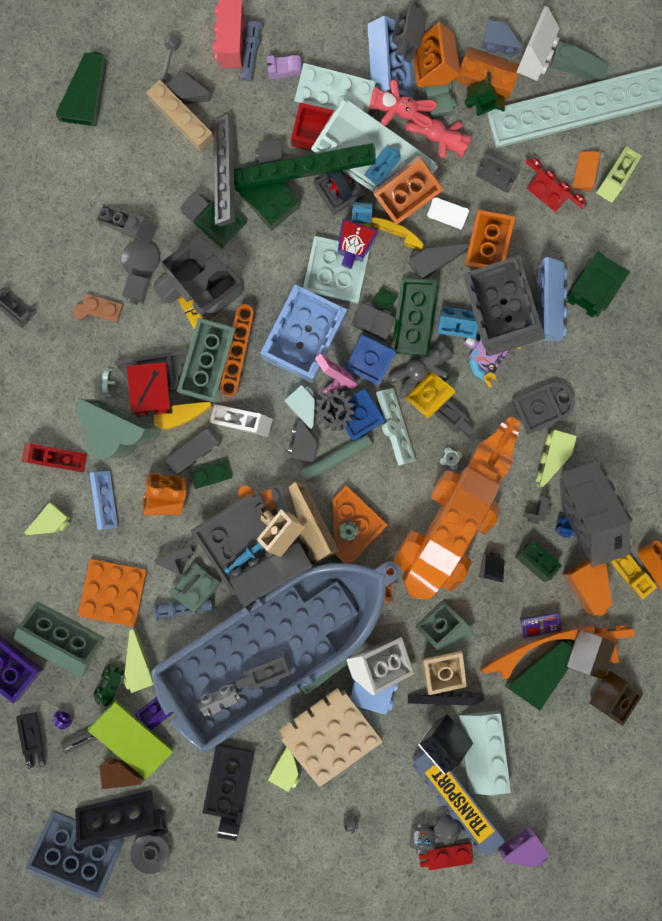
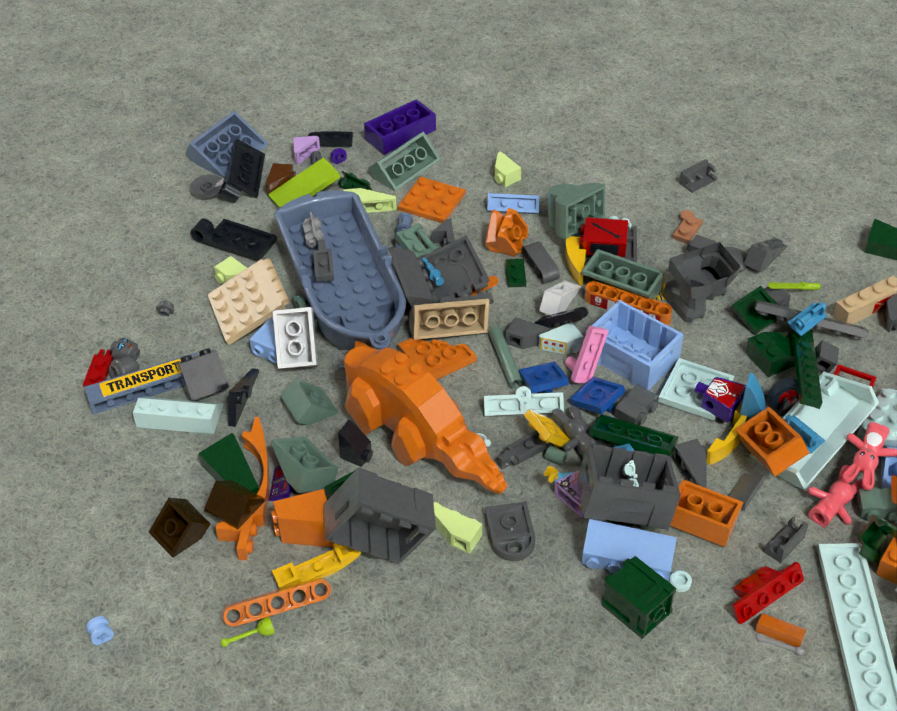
camera: 110 degrees right, 40 degrees down
(53, 457) = (561, 173): red slope -> none
(58, 765) = (304, 147): none -> lavender slope
(182, 199) = (788, 285): none -> lime piece
(237, 169) = (808, 318): none -> dark azure hinge
(280, 532) = (445, 281): tan brick -> none
(281, 411) = (563, 317): none -> black hinge
(333, 402) = (552, 355): dark grey gear -> none
(349, 525) = (431, 346): sand green plate -> none
(384, 299) = (658, 421): dark green plate -> none
(444, 673) = (268, 387): tan slope -> none
(495, 304) = (629, 470): none -> light aqua piece
(524, 850) = (73, 416): medium lavender slope -> none
(527, 609) = (304, 464): none -> sand green slope
(559, 254) = (680, 580): none -> light aqua tile
(619, 174) = (771, 656): yellowish green slope -> none

